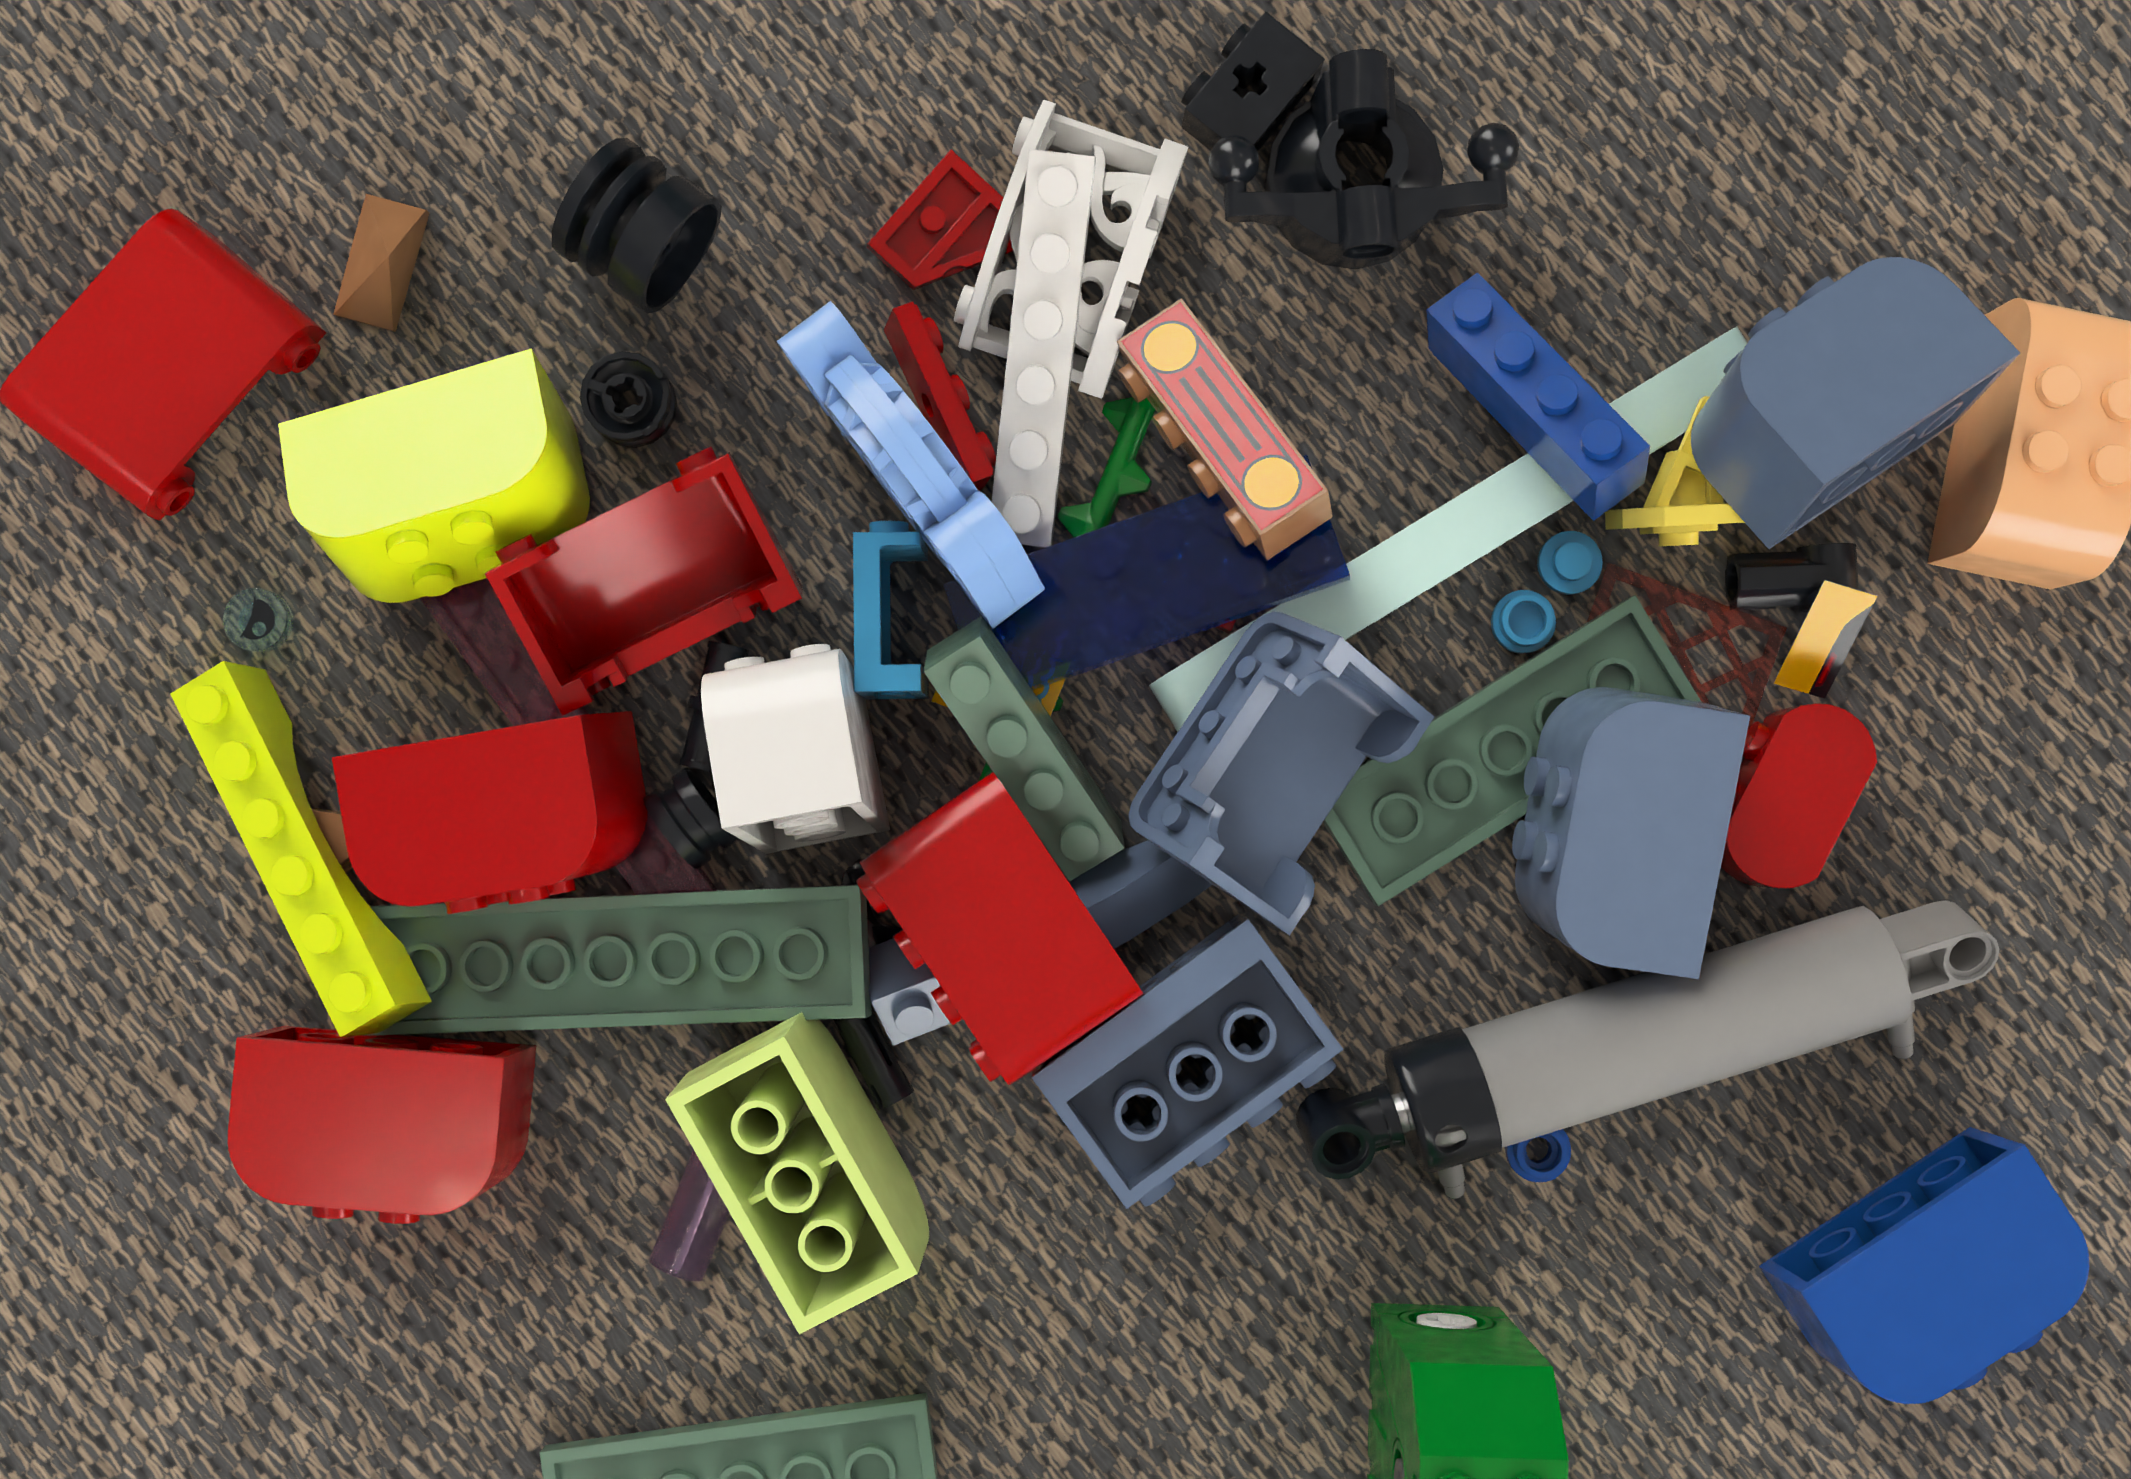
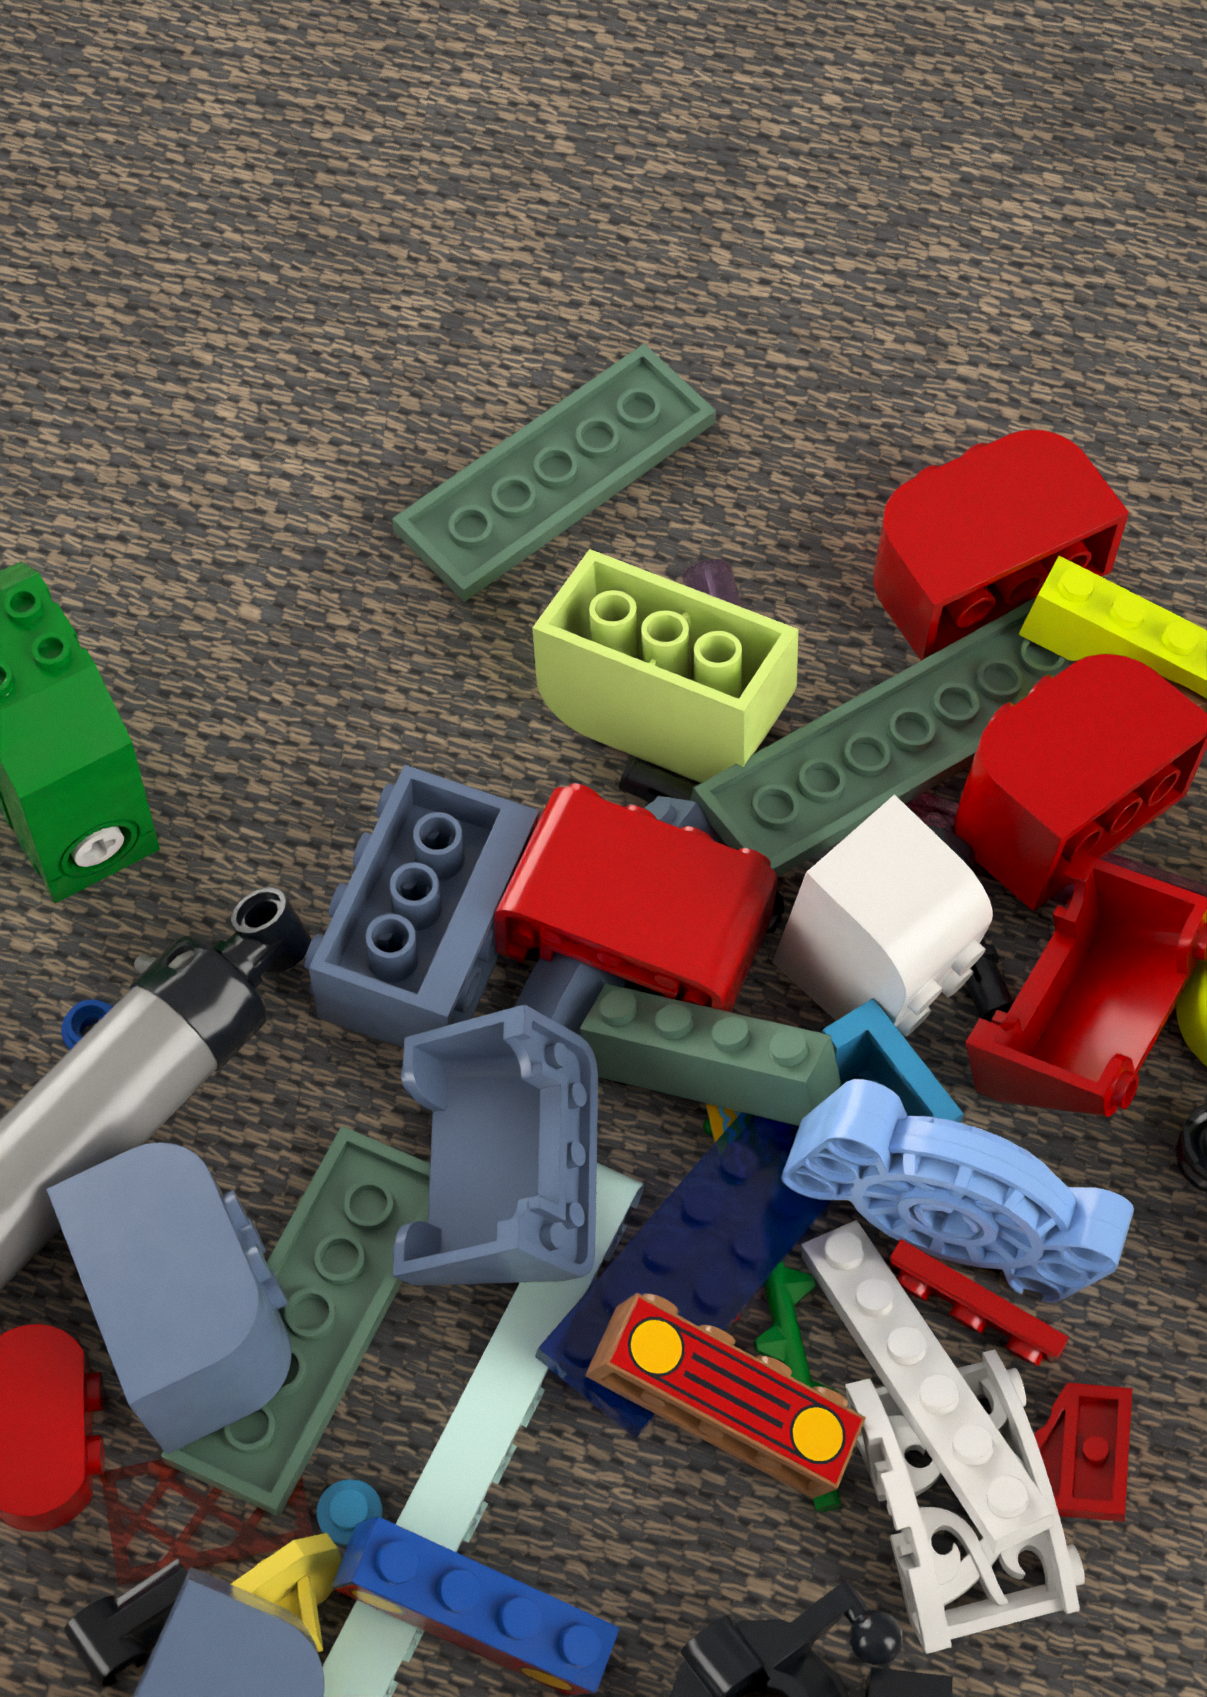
camera: 145 degrees right, 25 degrees down
(1523, 621) = (359, 1438): dark azure plate -> none
(1825, 639) = (80, 1579): yellow sticker -> none

